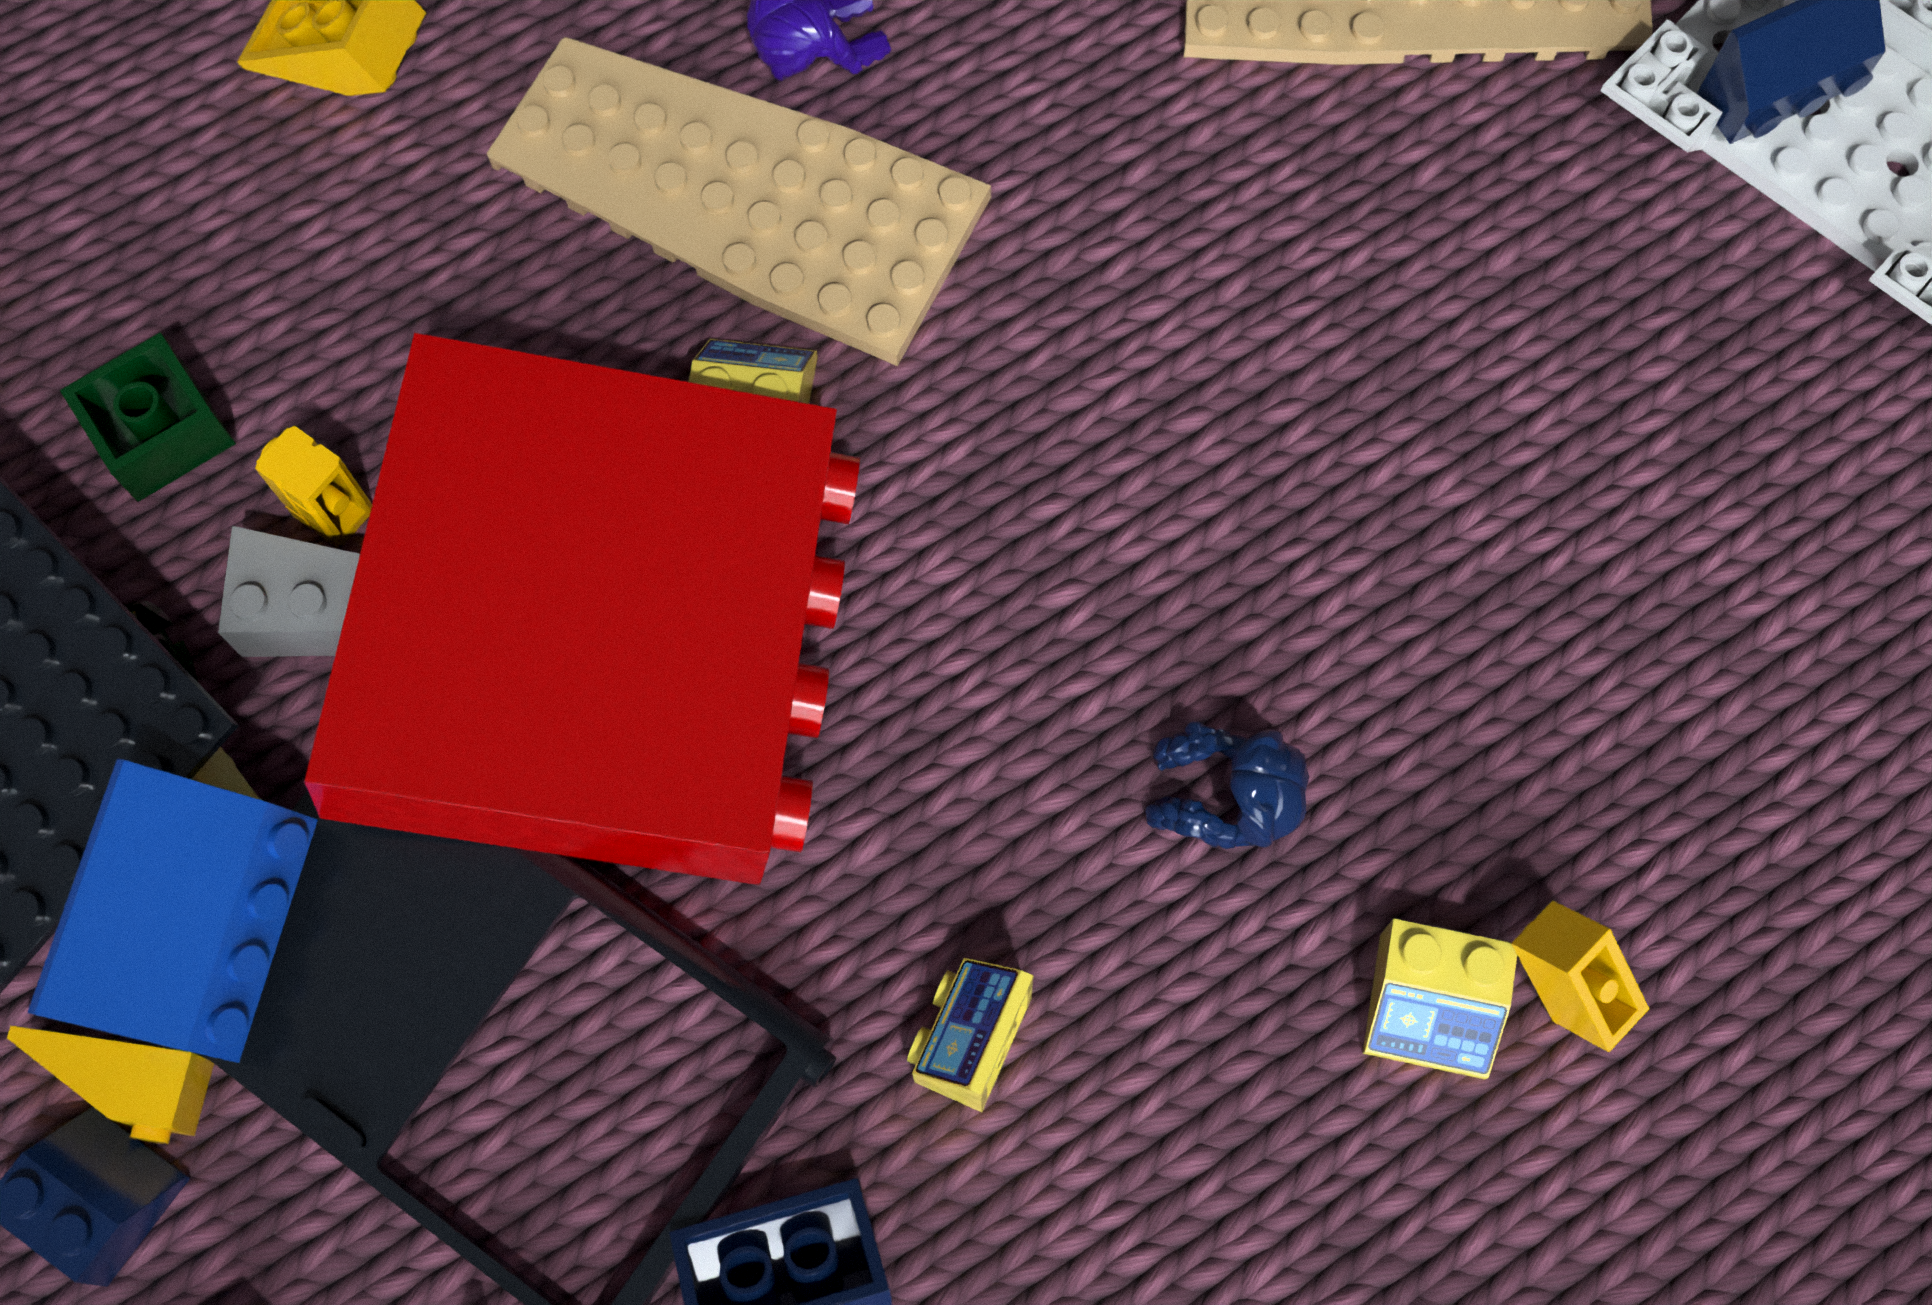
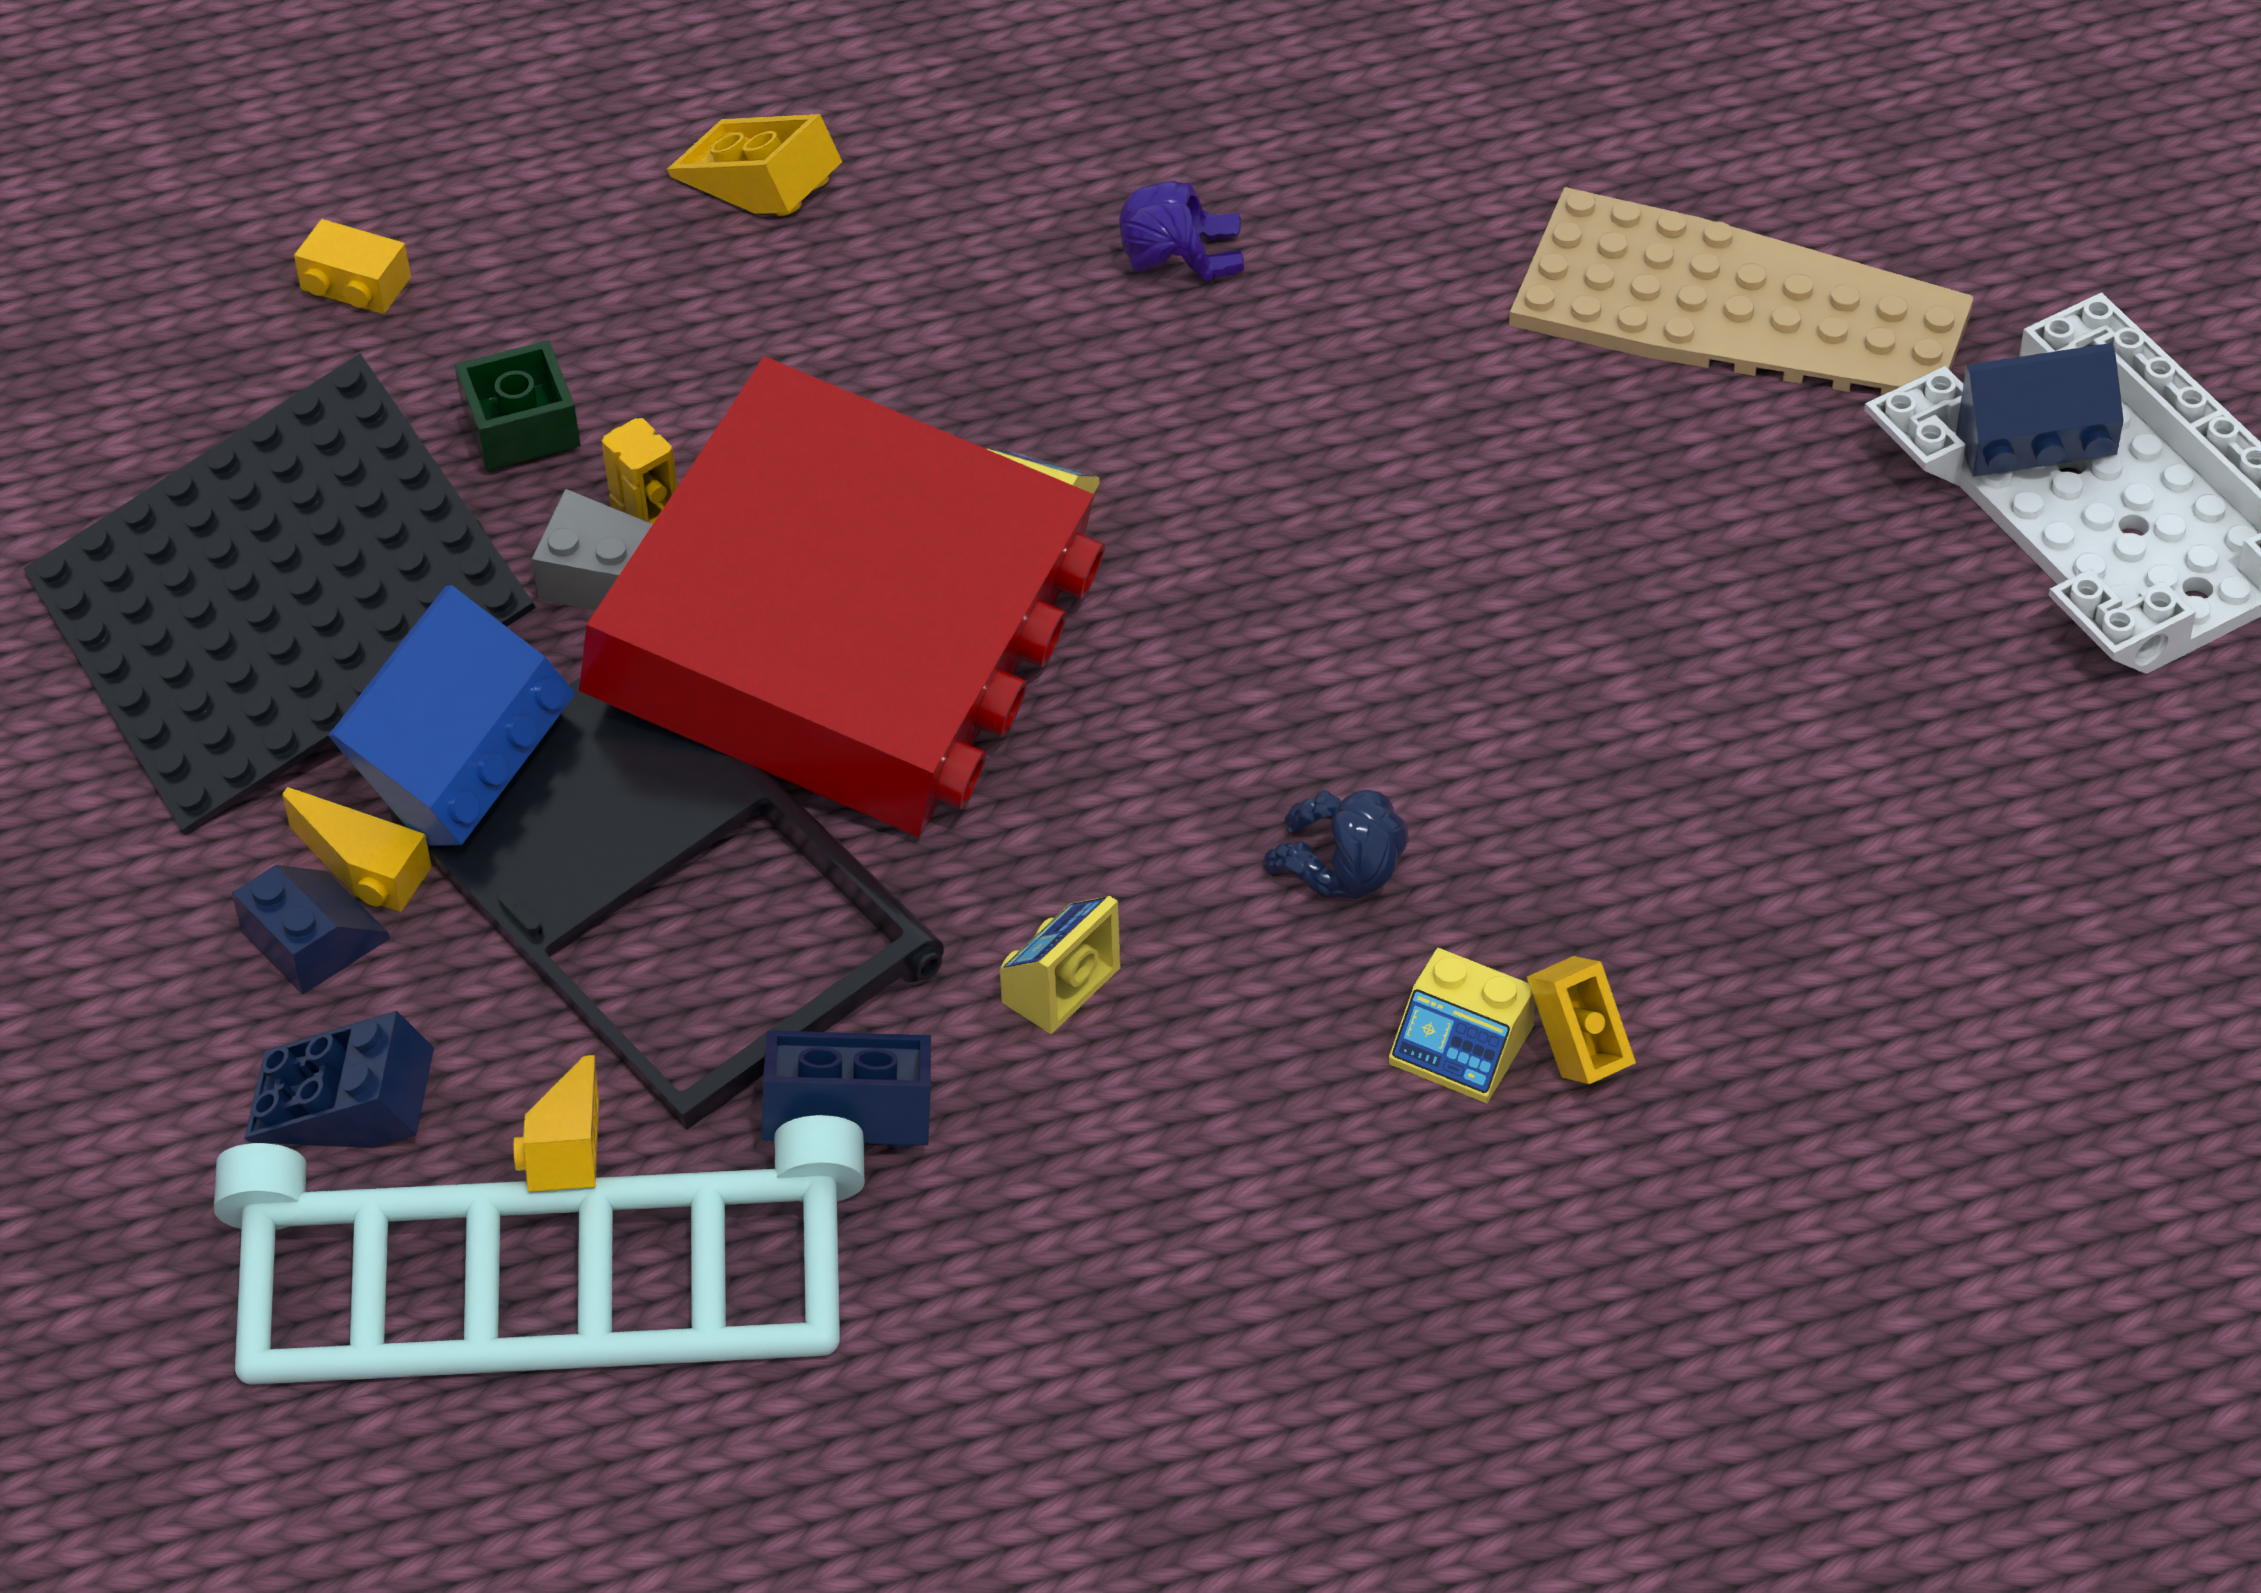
camera: 15 degrees right, 20 degrees down
(747, 193) = (1080, 351): tan wing -> none

